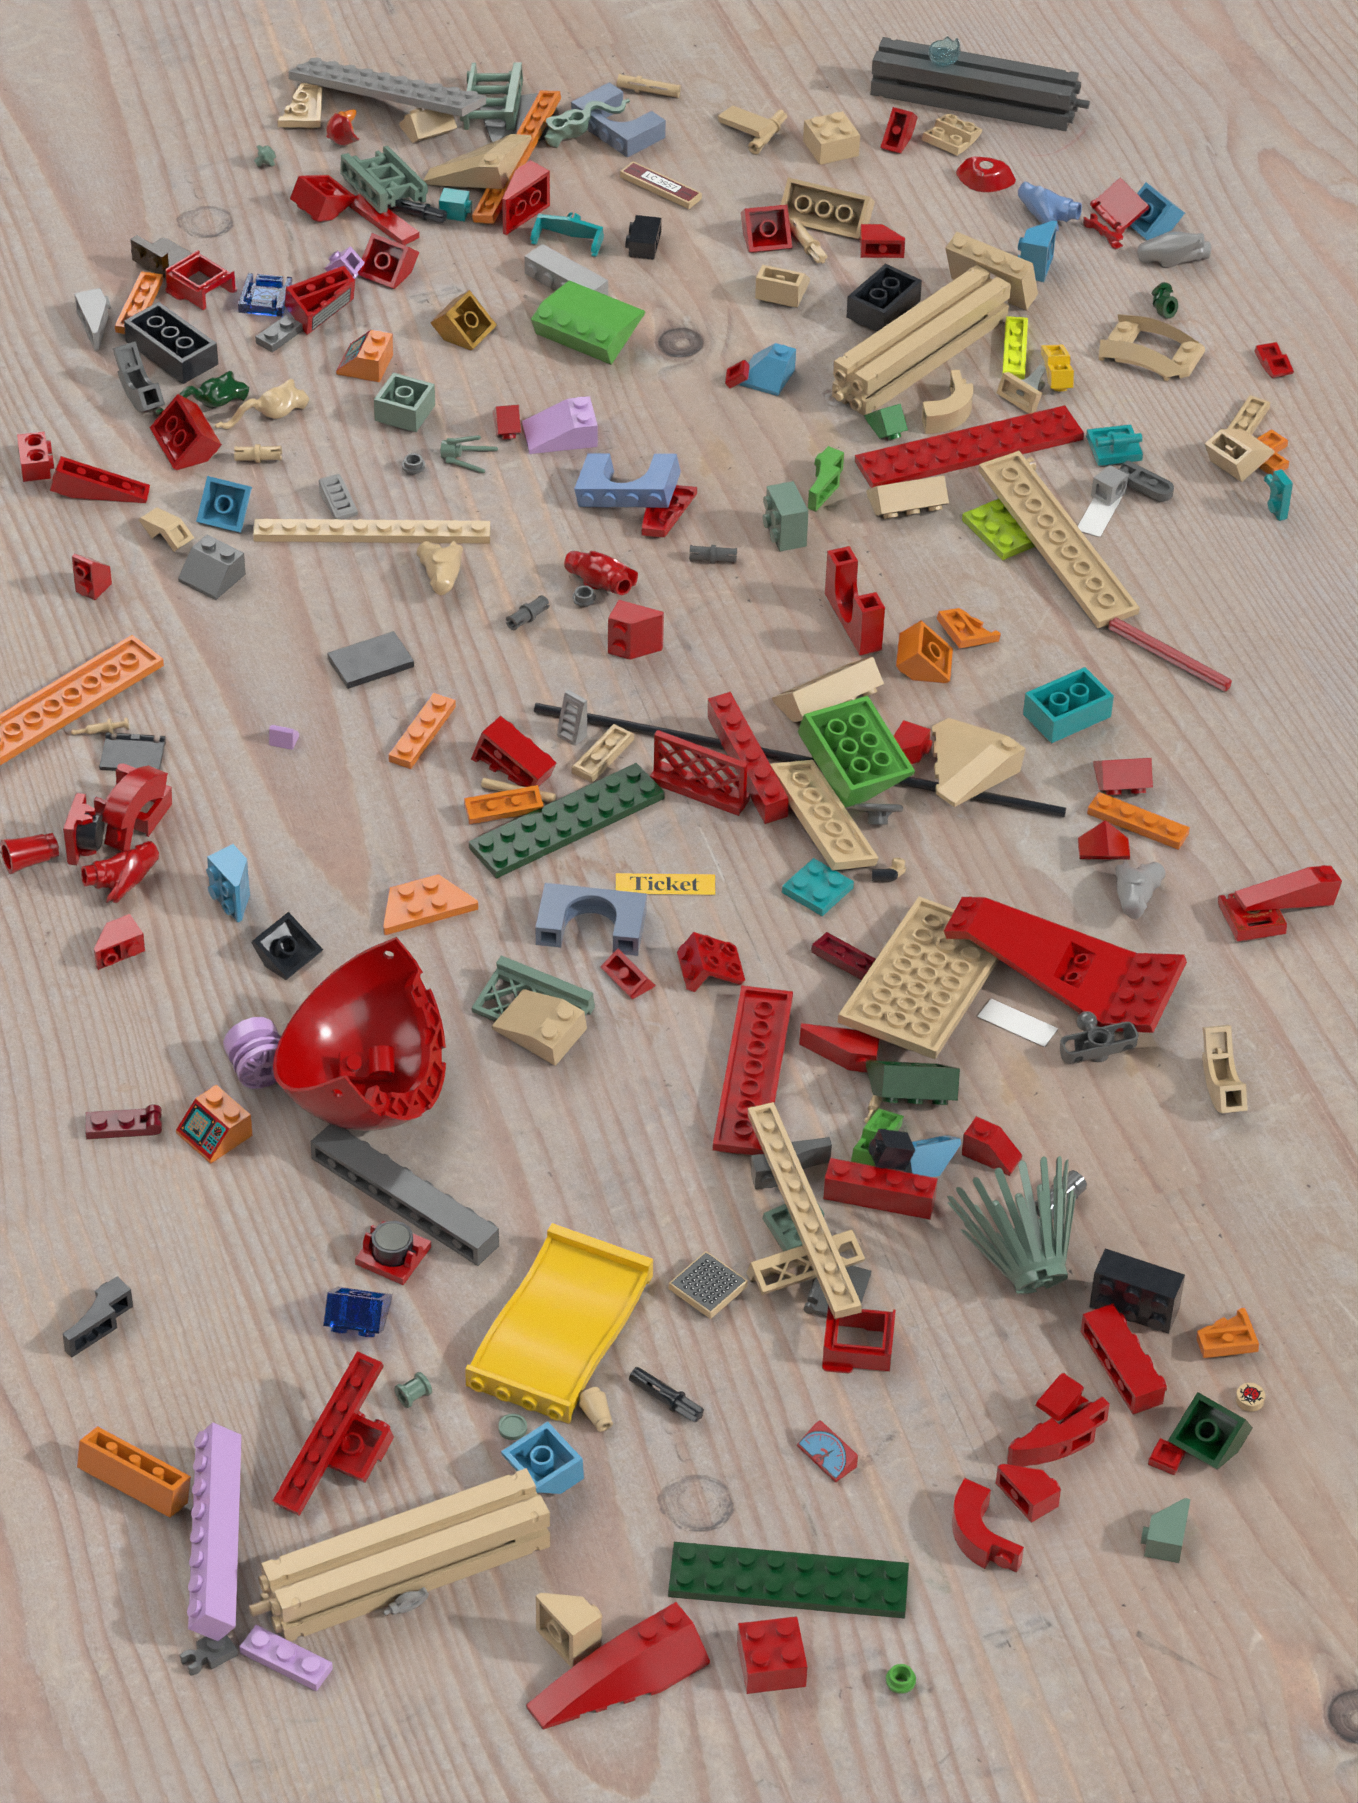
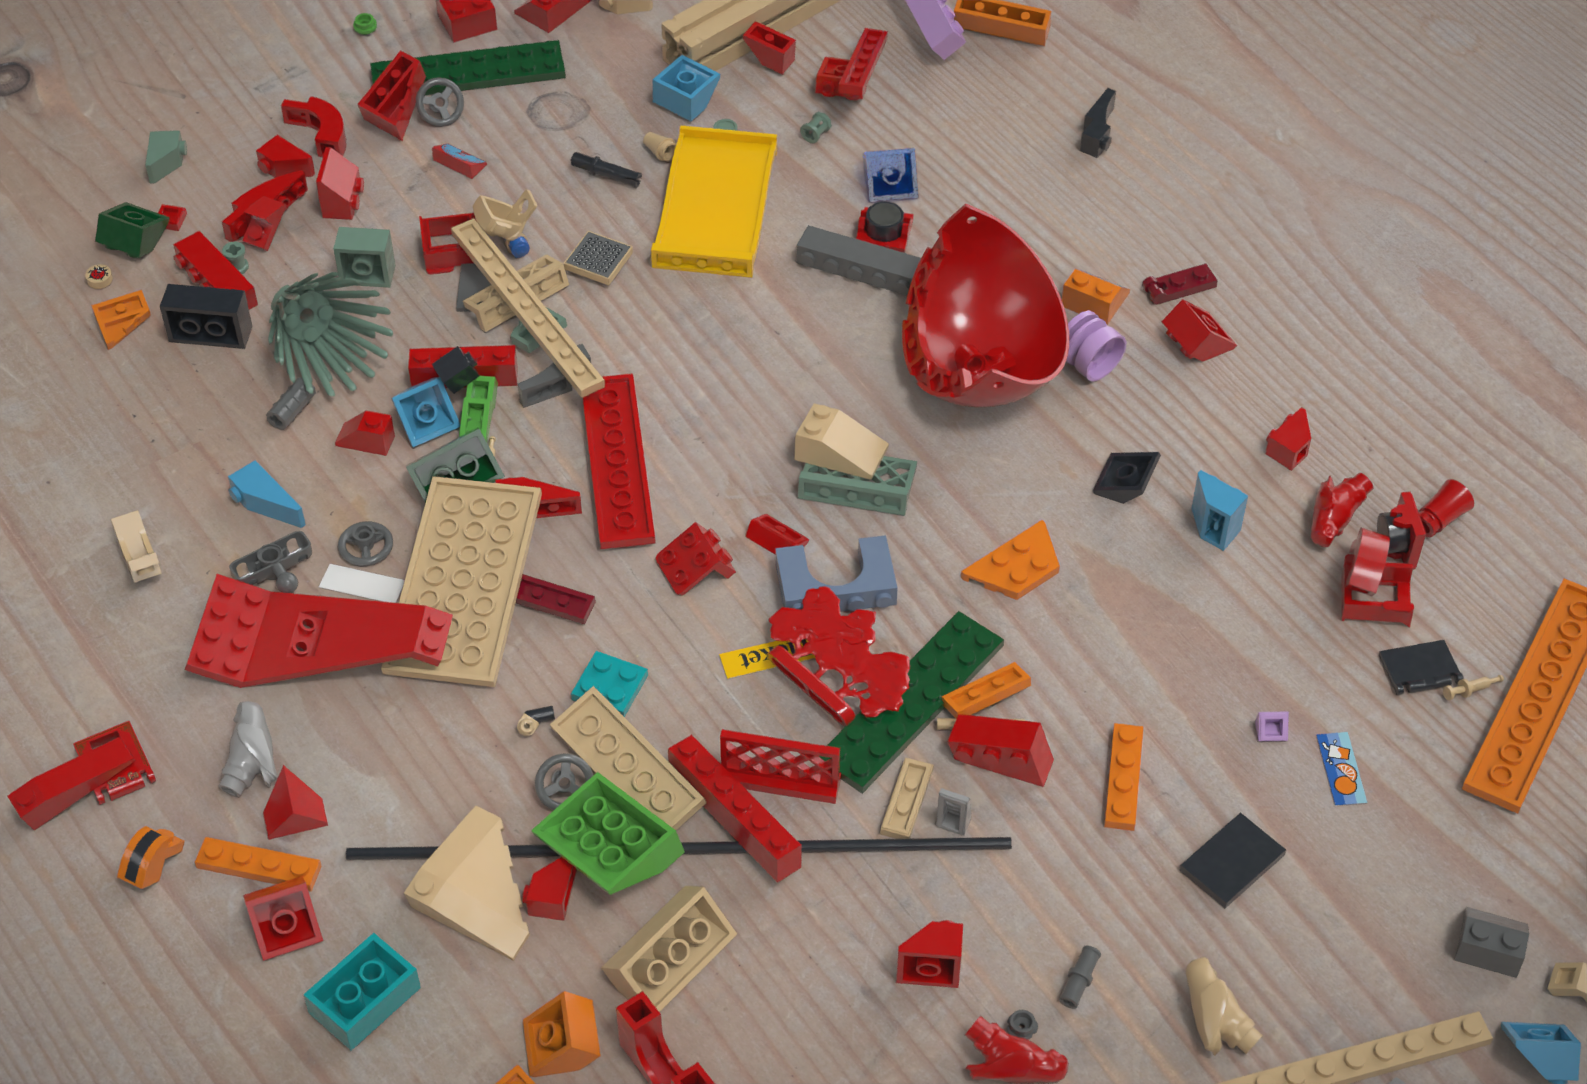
camera: 165 degrees right, 5 degrees up
(138, 1059) = (1197, 332): none -> red slope
(245, 703) = (1341, 768): none -> sticker
(419, 1486) = (771, 47): none -> red slope
(619, 854) = (838, 645): none -> red plant
(801, 1320) = (506, 221): none -> tan piece
(834, 1521) = (450, 87): none -> dark grey piece
(888, 1525) = (393, 95): none -> red wedge
(959, 1321) = (365, 256): none -> sand green brick
(972, 1425) = (338, 186): none -> red slope
(1008, 1049) = (364, 536): none -> dark grey piece
(1098, 1107) = (263, 495): none -> dark azure slope
(1099, 1373) = (235, 254): none -> sand green bush
(1225, 828) = (146, 855): none -> orange brick

